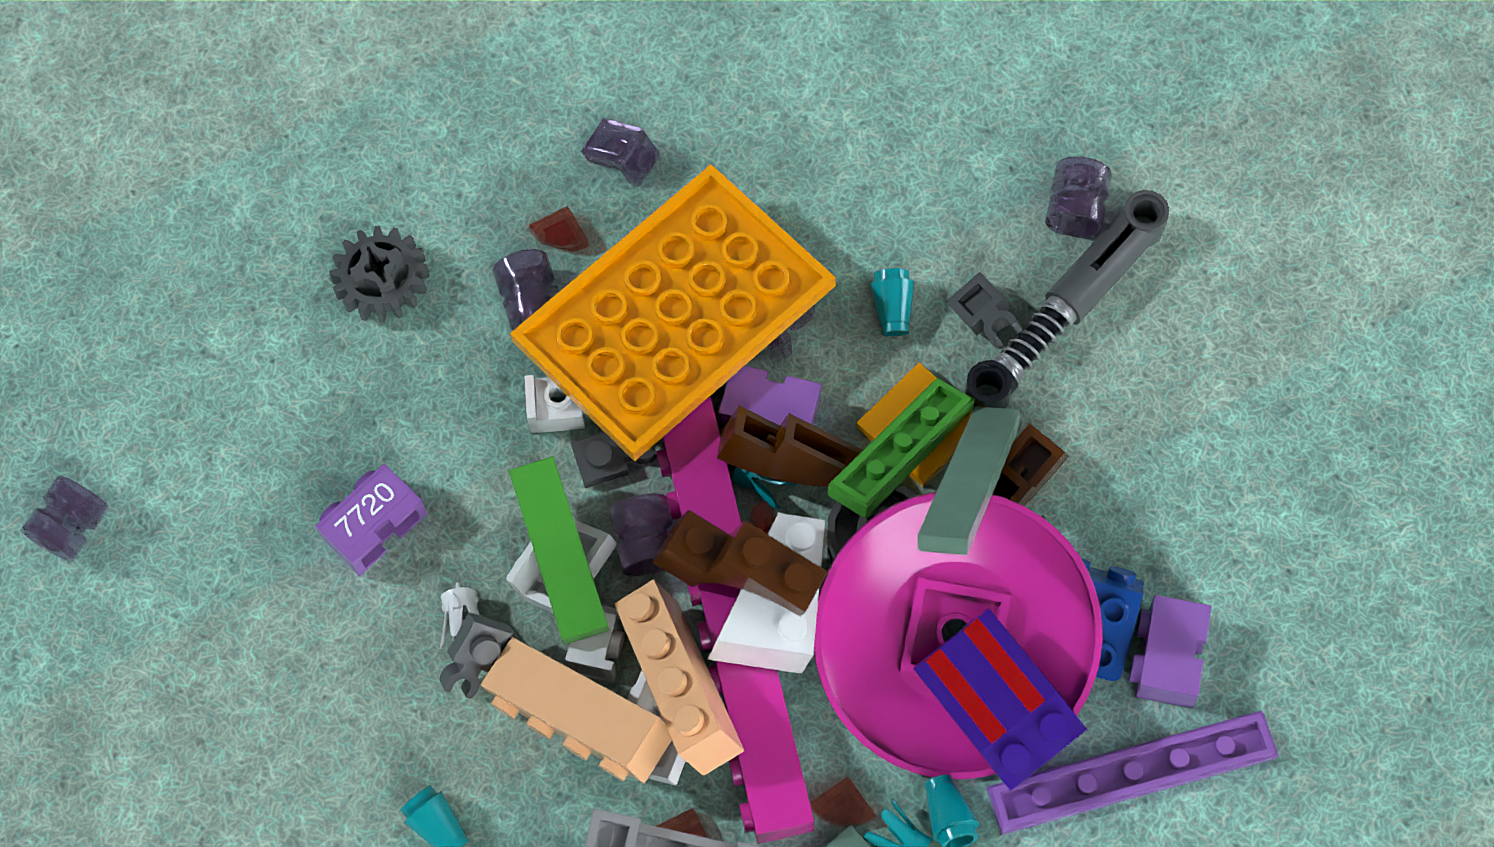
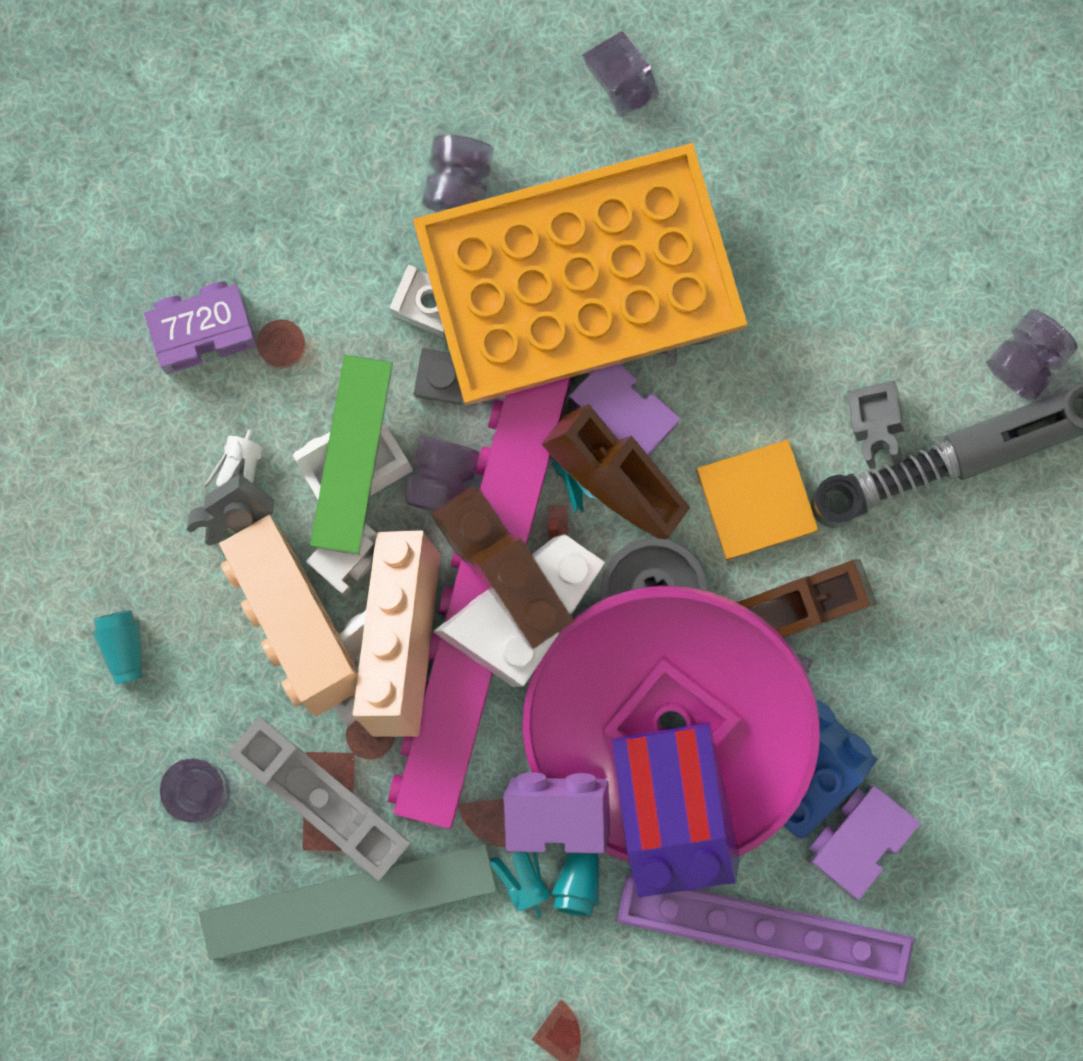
camera: 25 degrees right, 15 degrees up
(398, 262) = (309, 81): dark grey gear -> none
(447, 500) = (281, 344): none -> clear red tile
(560, 231) = (521, 126): clear red tile -> none
(698, 790) = (365, 745): none -> clear red tile
(893, 300) = (797, 365): teal cone -> none
(899, 757) = (557, 811): none -> medium lavender brick
(900, 447) = (718, 522): bright green tile -> none
(969, 481) = (753, 602): sand green tile -> none

